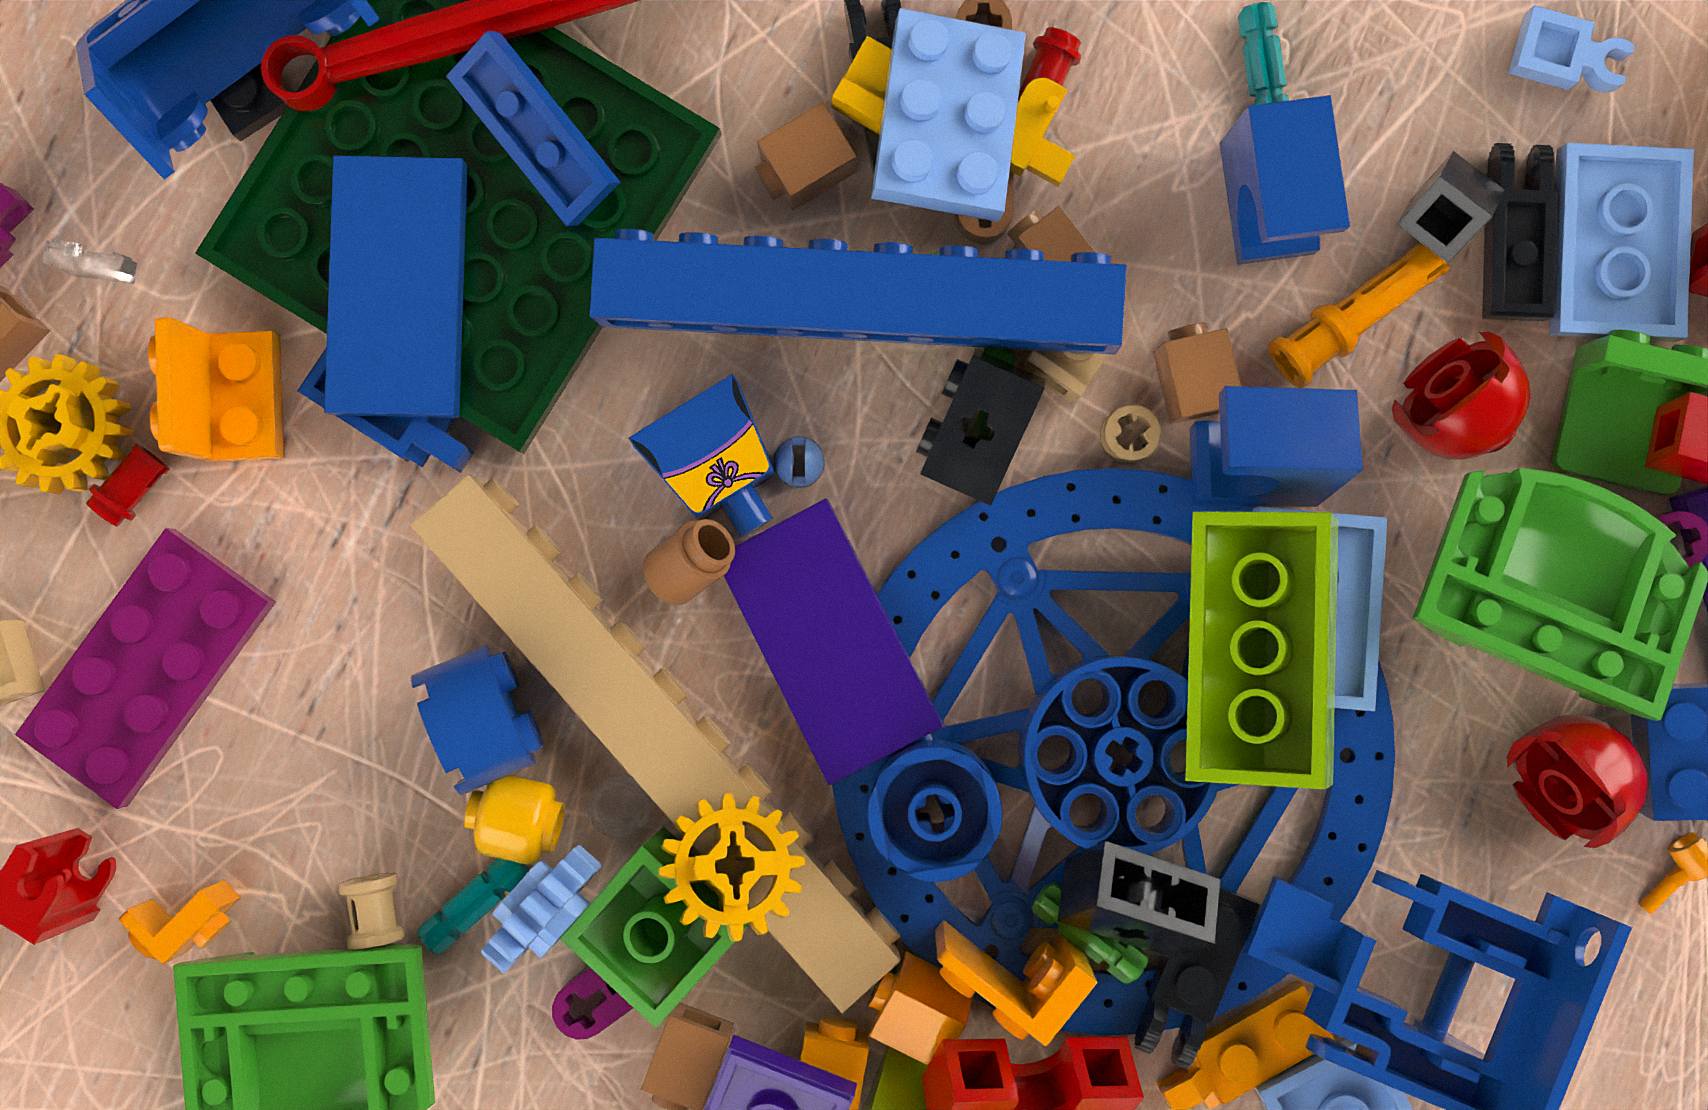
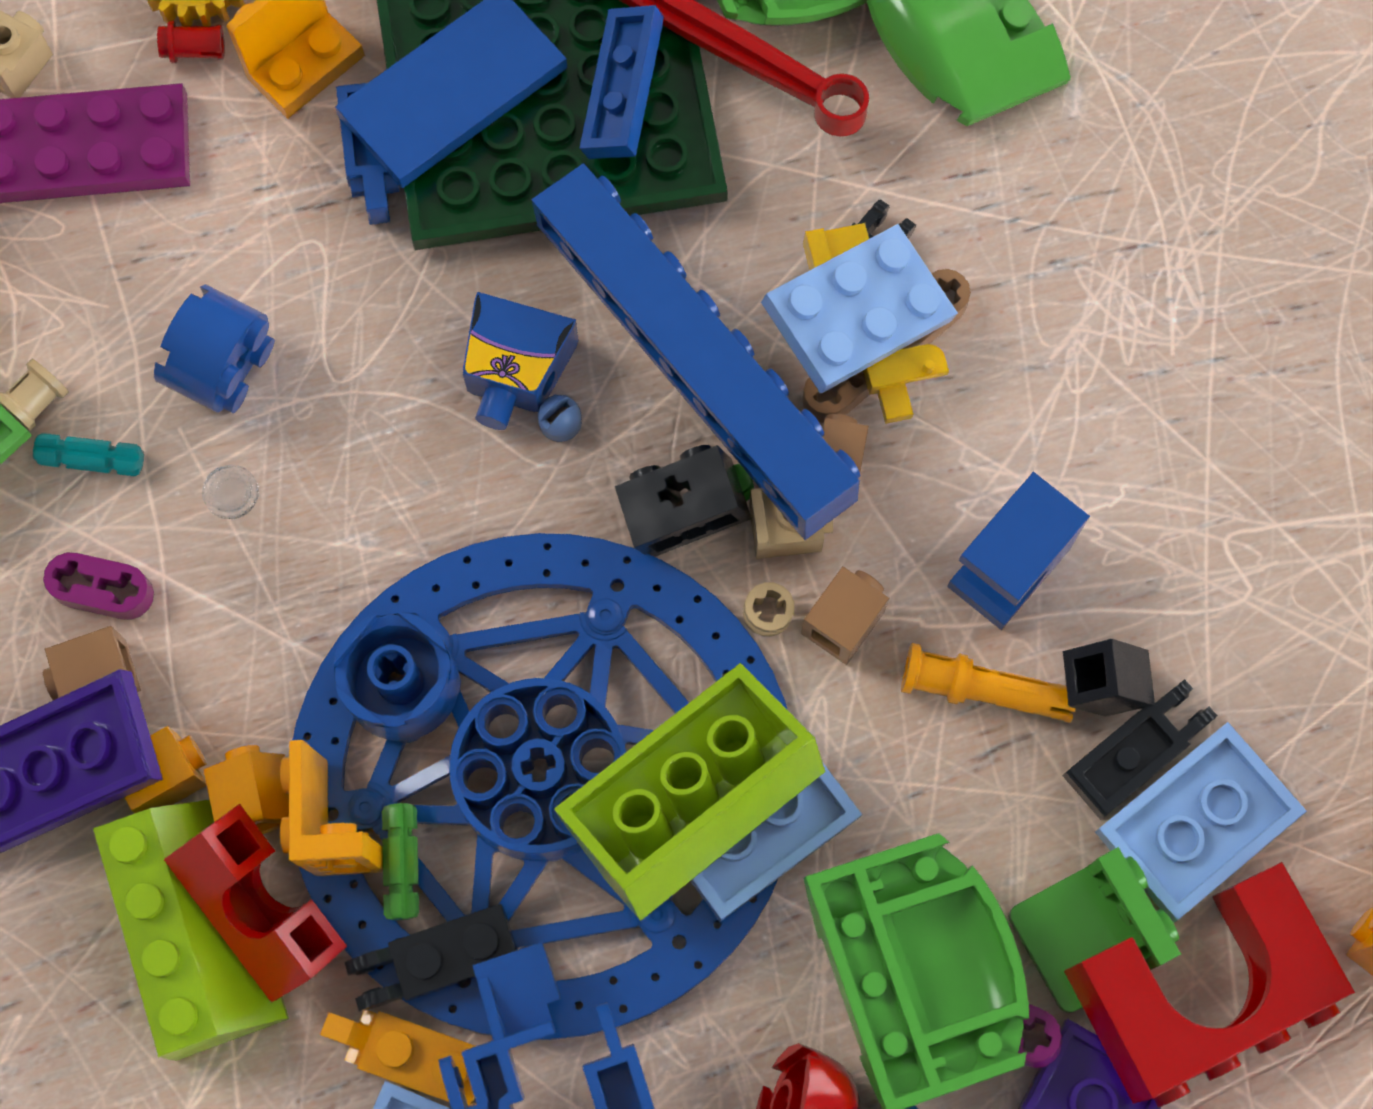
camera: 50 degrees right, 15 degrees down
(515, 819) = (166, 430): yellow head -> none
(541, 908) = (118, 486): light blue gear -> none
(638, 938) = (169, 573): bright green slope -> none
(647, 725) = (294, 486): tan brick -> none
(689, 561) = (430, 396): medium nougat brick -> none
(759, 863) = (228, 552): yellow gear -> none
(805, 157) = (756, 255): medium nougat brick -> none
(830, 642) = (455, 527): dark purple tile -> none
(1054, 56) = (965, 354): red pin -> none
(1139, 899) = (448, 860): black brick -> none
(1262, 53) = (1099, 476): teal axle -> none
(1276, 447) = (838, 689): blue piece -> none
(1465, 399) = (991, 805): red cylinder -> none
(1560, 49) = (1285, 666): light blue plate -> none

